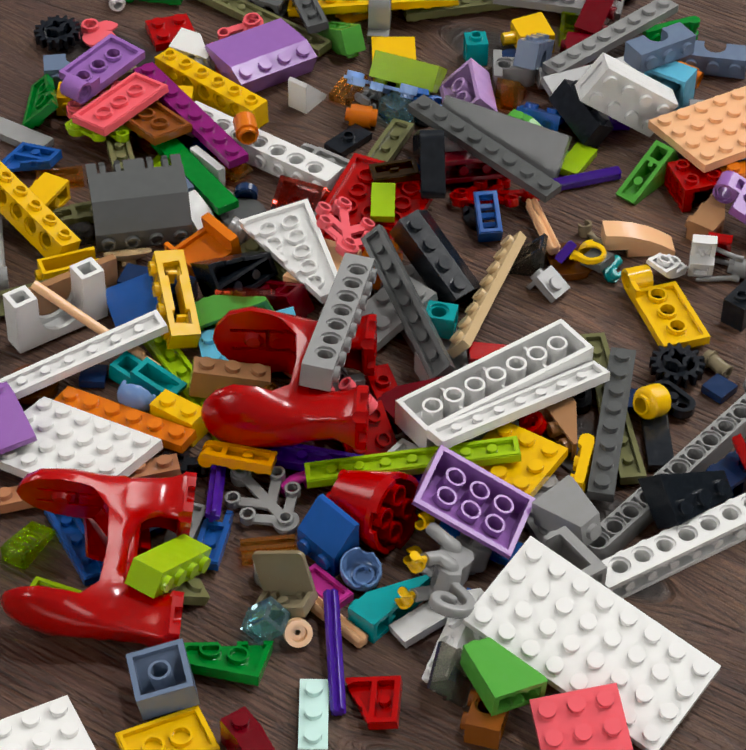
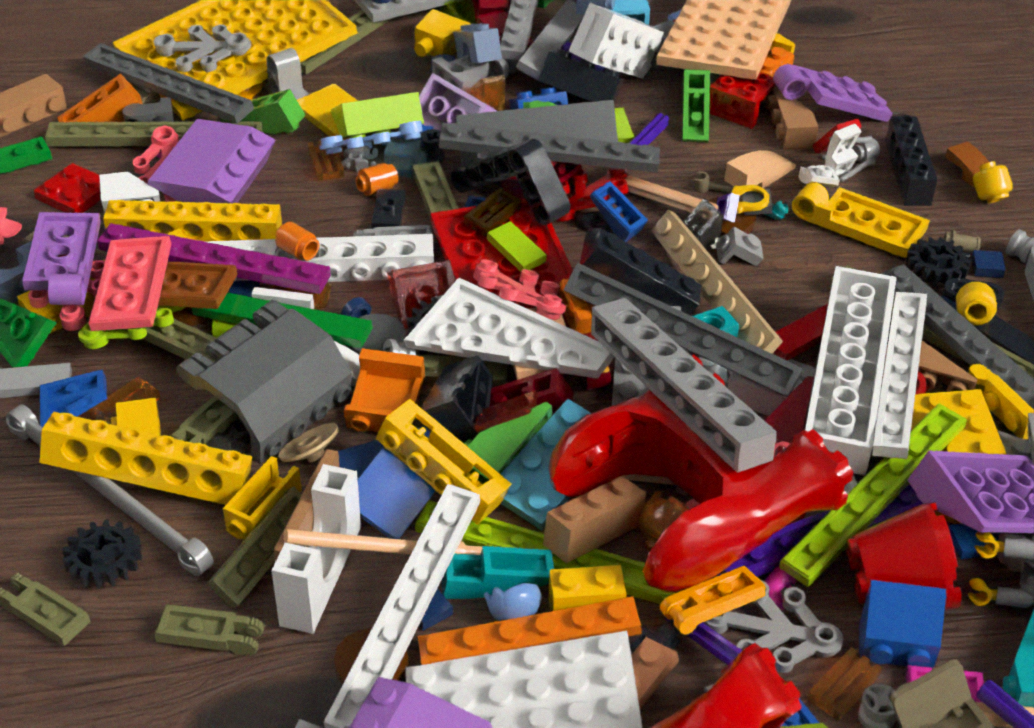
camera: 40 degrees left, 0 degrees up
(303, 96) = (296, 186): white slope -> none
(360, 569) = (966, 641): medium blue hair -> none
(476, 47) = (408, 68): teal brick -> none

